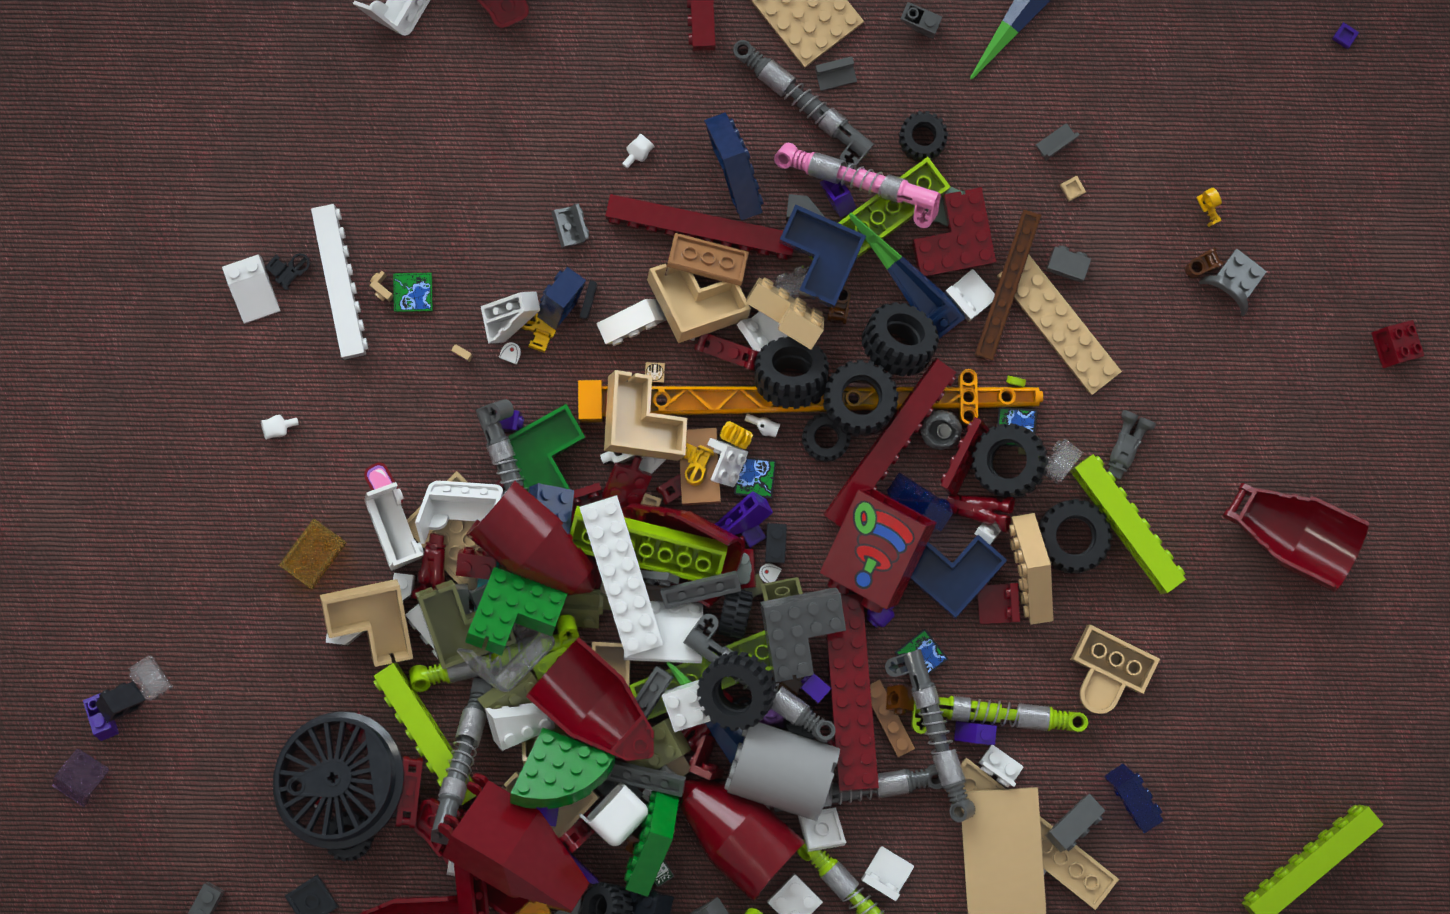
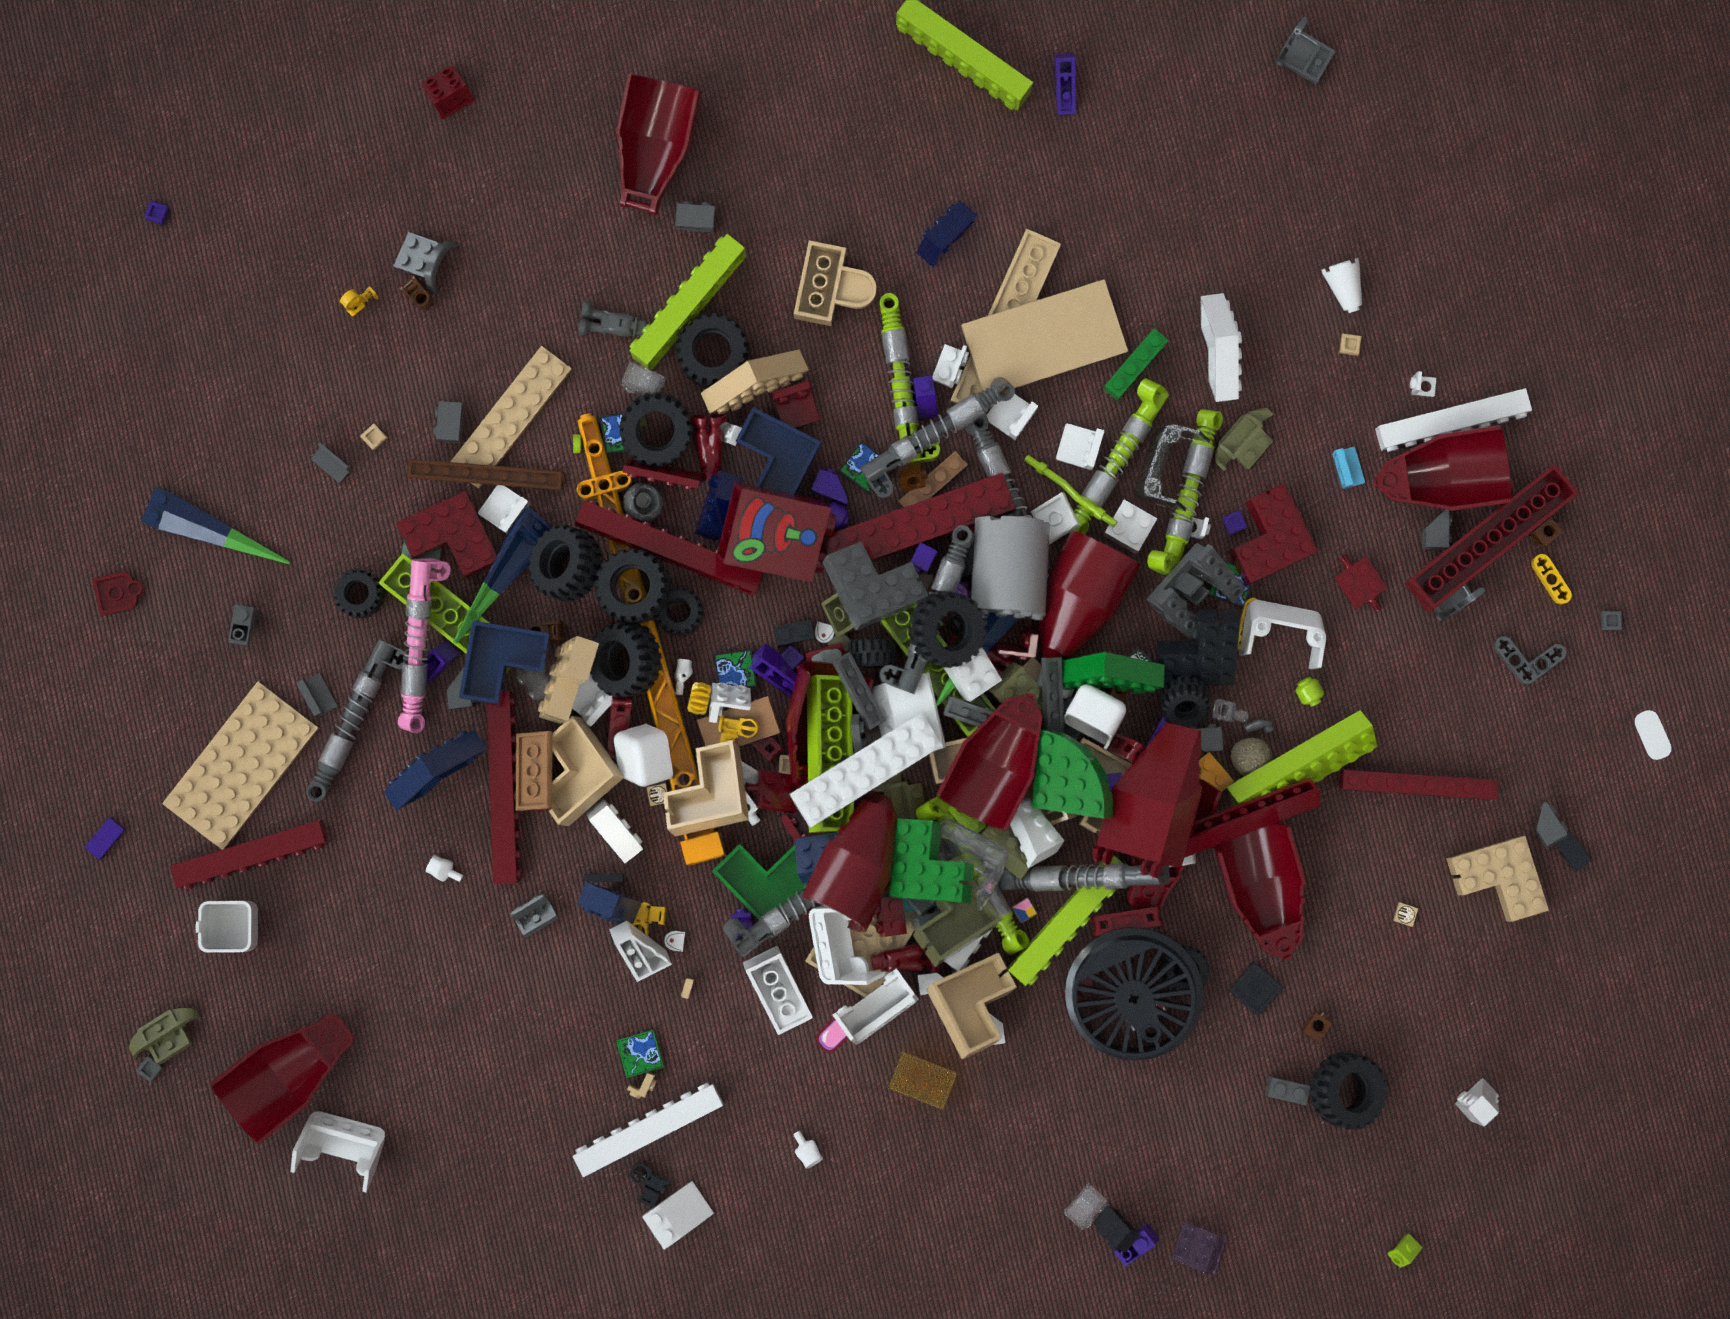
camera: 100 degrees left, 0 degrees up
(437, 437) = (777, 990): none -> white slope
(448, 695) = (1024, 910): none -> tile
(694, 366) = (643, 755): none -> white piece
(815, 873) = (1099, 513): none -> lime bar
(911, 615) = (829, 487): none -> dark purple slope
(935, 814) = (1011, 415): none -> white bracket
(1075, 823) = (985, 281): dark grey brick -> none
(1212, 554) = (695, 217): none -> dark grey brick

